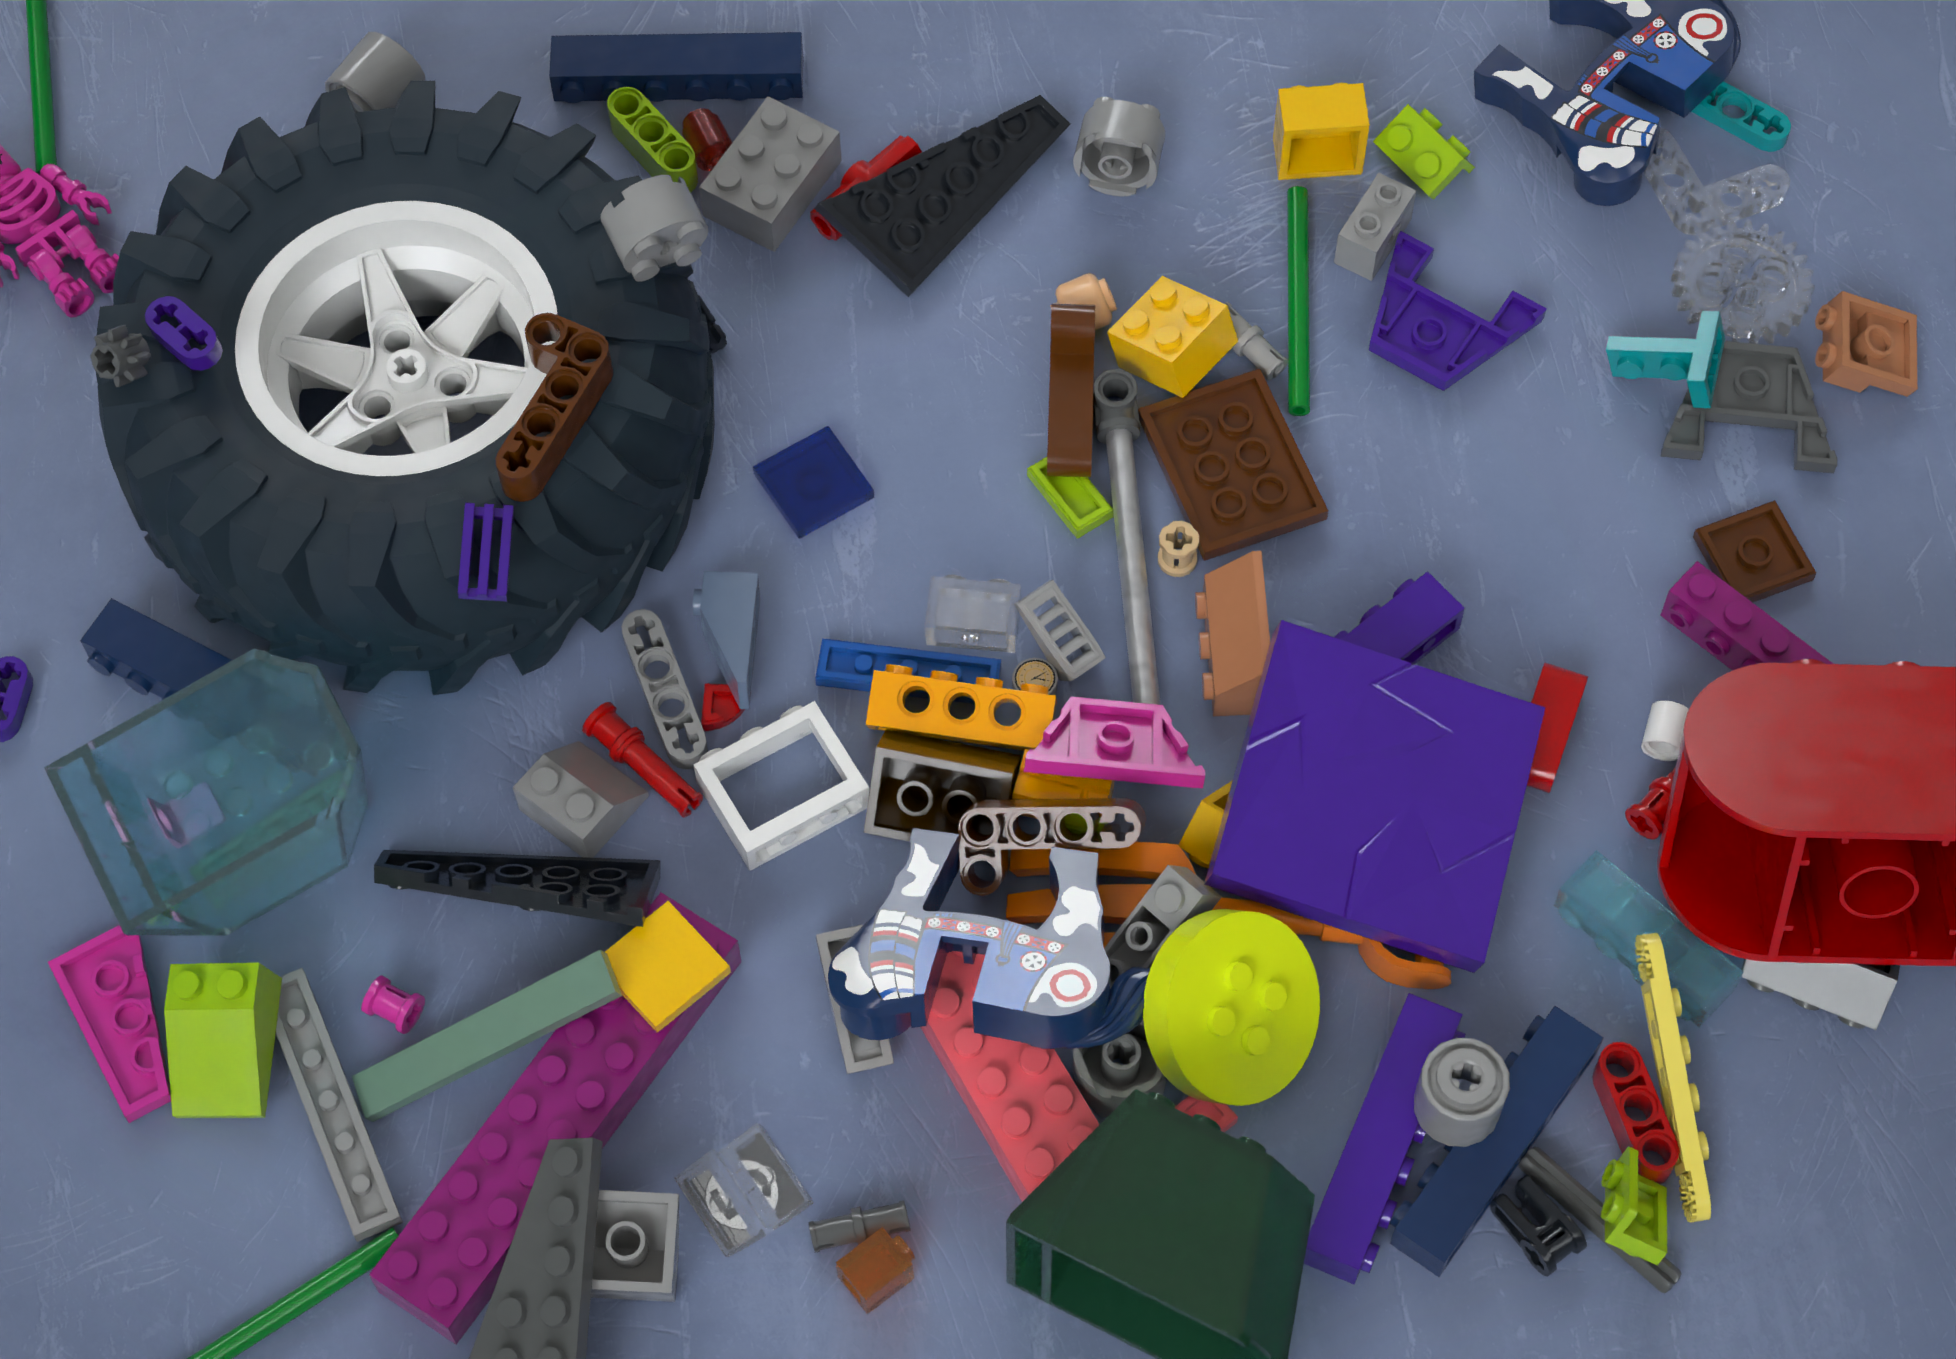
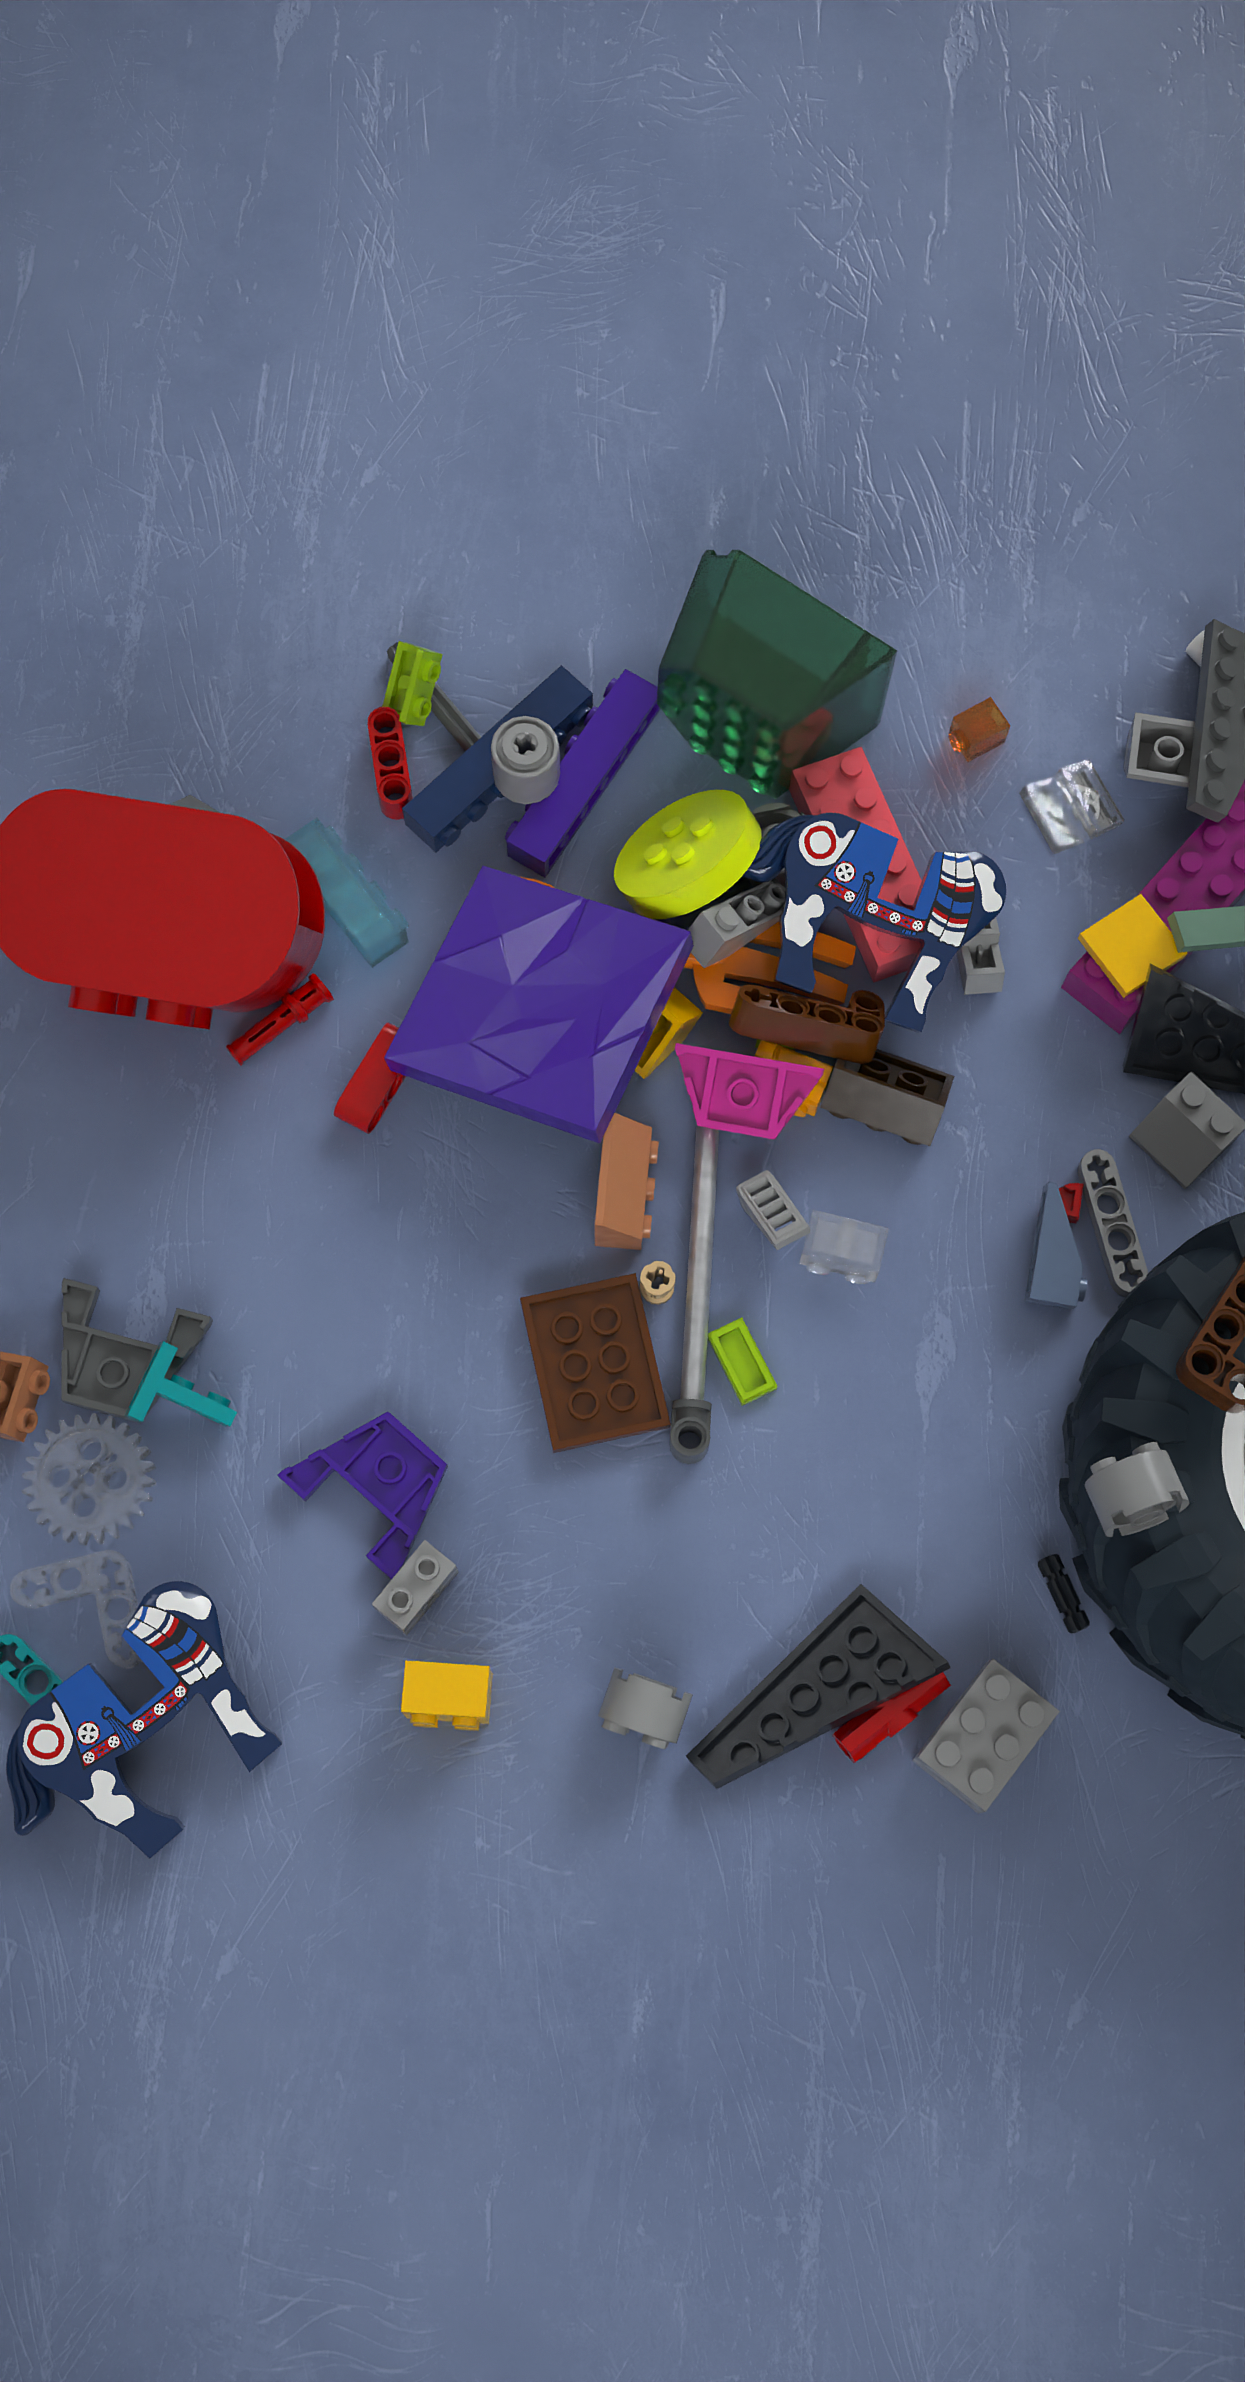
camera: 175 degrees left, 10 degrees up
(628, 747) = (1146, 1170): red pin -> none
(648, 125) = (1117, 1805): lime beam -> none
(678, 66) = (1071, 1884): dark blue brick -> none
(706, 136) = (1043, 1790): clear red brick -> none
(803, 820) = (1007, 1080): white window -> none
(813, 482) = (969, 1403): clear blue tile -> none
(852, 665) = (903, 1210): blue tile -> none
(858, 1225) = (987, 765): dark grey pin -> none
(894, 684) = (865, 1152): light orange brick -> none
(1036, 672) = (798, 1184): tile -> none
(1071, 390) = (730, 1441): reddish brown beam -> none
(1090, 291) = (703, 1543): light nougat head -> none
(1172, 336) = (629, 1486): yellow piece -> none
(1256, 347) = (557, 1487): light grey pin -> none
(1298, 301) = (501, 1530): green piece -> none
(1411, 622) = (489, 1173): dark purple brick -> none
(1423, 151) = (346, 1675): lime bracket -> none
(1541, 1244) = (479, 684): black piece -> none
(1664, 730) = (281, 1061): white beam -> none
(1670, 1056) = (354, 785): light yellow plate -> none
(1730, 623) = (193, 1127): magenta brick -> none
(1755, 552) = (159, 1215): reddish brown tile -> none

